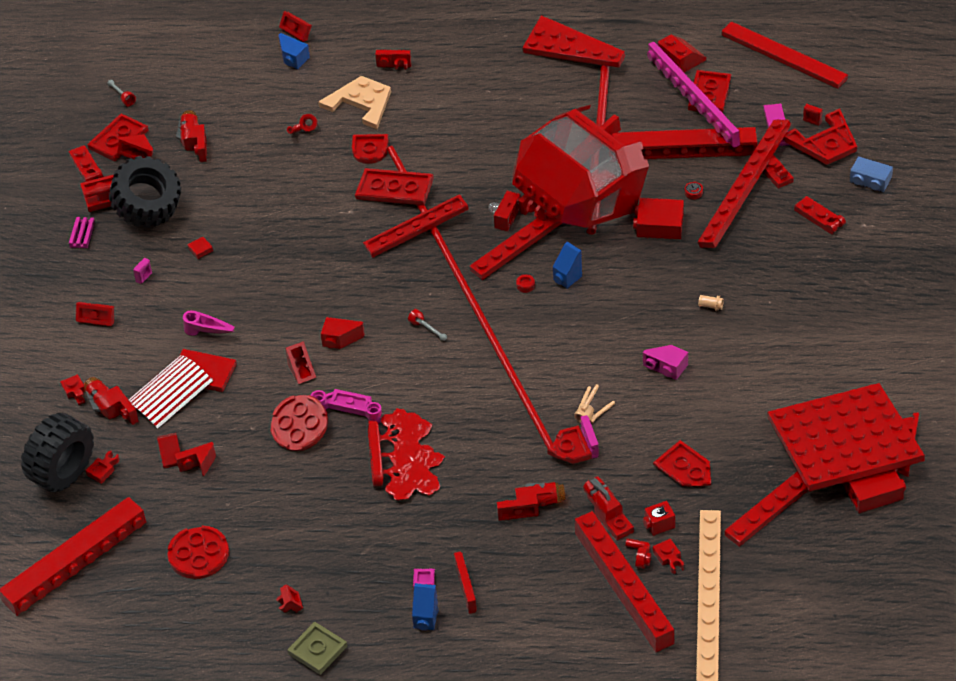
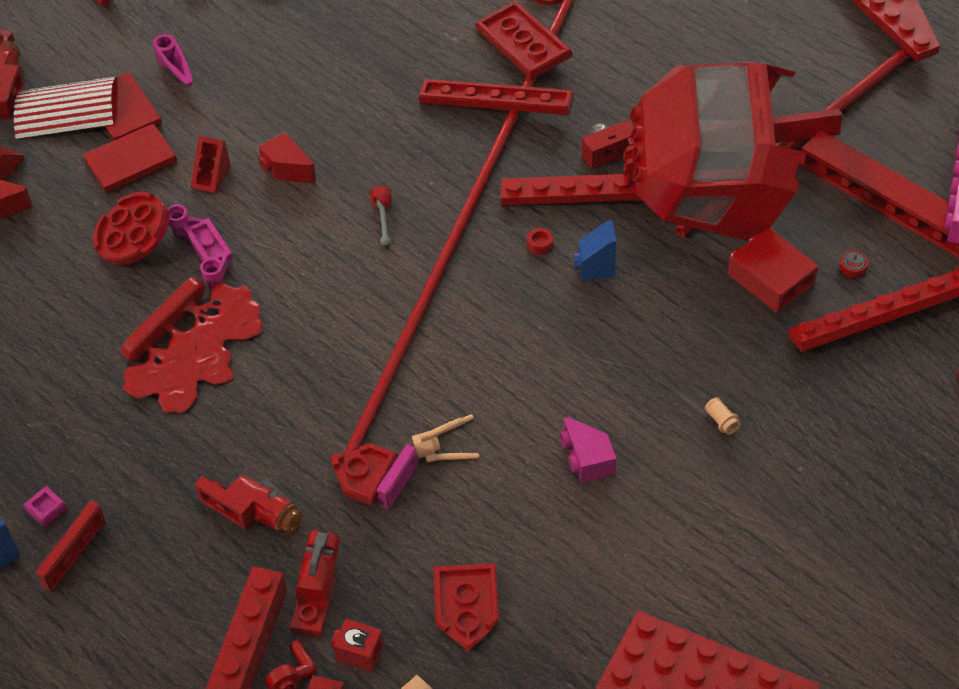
camera: 40 degrees right, 5 degrees up
(243, 392) = (129, 158): none -> red tile

